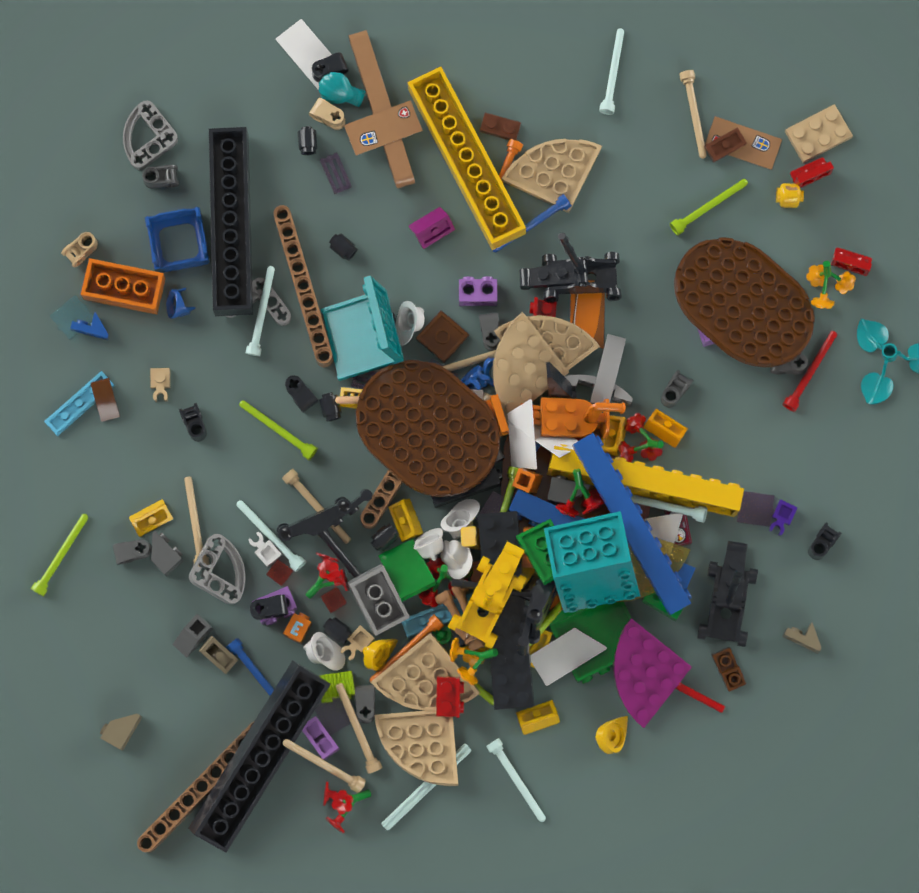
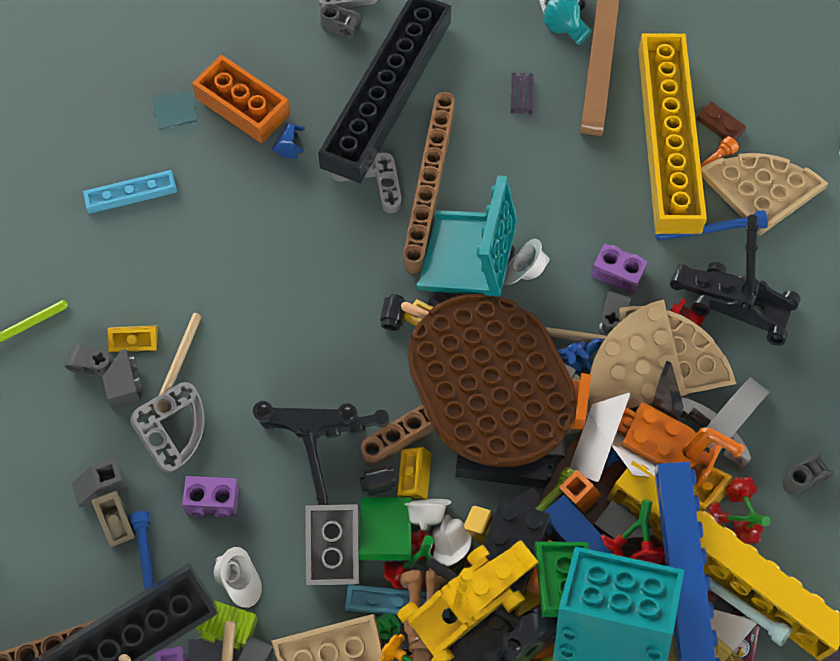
camera: 25 degrees right, 15 degrees down
(78, 248) = (227, 45): tan piece -> none
(96, 328) = (187, 125): blue slope -> none
(105, 399) = (156, 196): reddish brown slope -> none
(160, 380) = (225, 207): tan plate -> none
(172, 218) = (326, 61): blue piece -> none
(193, 419) = (236, 258): black piece -> none
(254, 346) = (343, 217): light aqua piece -> none
(266, 551) = (237, 431): white plate -> none
(271, 607) = (202, 492): black piece -> none
(279, 572) = (237, 462): clear red plate -> none
(293, 479) = (310, 366): tan piece -> none
(296, 561) = (263, 460): light aqua piece -> none
(298, 627) = (222, 534): orange brick -> none
(302, 395) = (367, 286): black piece -> none
(307, 140) = (508, 50): black brick -> none
(307, 450) = (343, 346): lime piece -> none
(325, 112) = (542, 36): tan piece -> none
(328, 570) = (290, 480): red plant -> none
(333, 600) = (282, 523): clear red plate -> none
(337, 630) = (266, 560): black brick -> none
(343, 246) = (492, 161): black brick -> none
(358, 640) = (286, 585): tan plate -> none
(378, 653) = (299, 610): yellow piece -> none
(383, 127) = (594, 67): medium nougat sticker -> none
(432, 227) = (599, 185): magenta panel -> none
(433, 625) = (384, 608): orange piece -> none
(442, 336) = (556, 298): reddish brown tile -> none
(460, 516) = (481, 495): white piece -> none
(588, 314) = (739, 345): orange sticker -> none
(665, 428) = (783, 521): light orange slope -> none

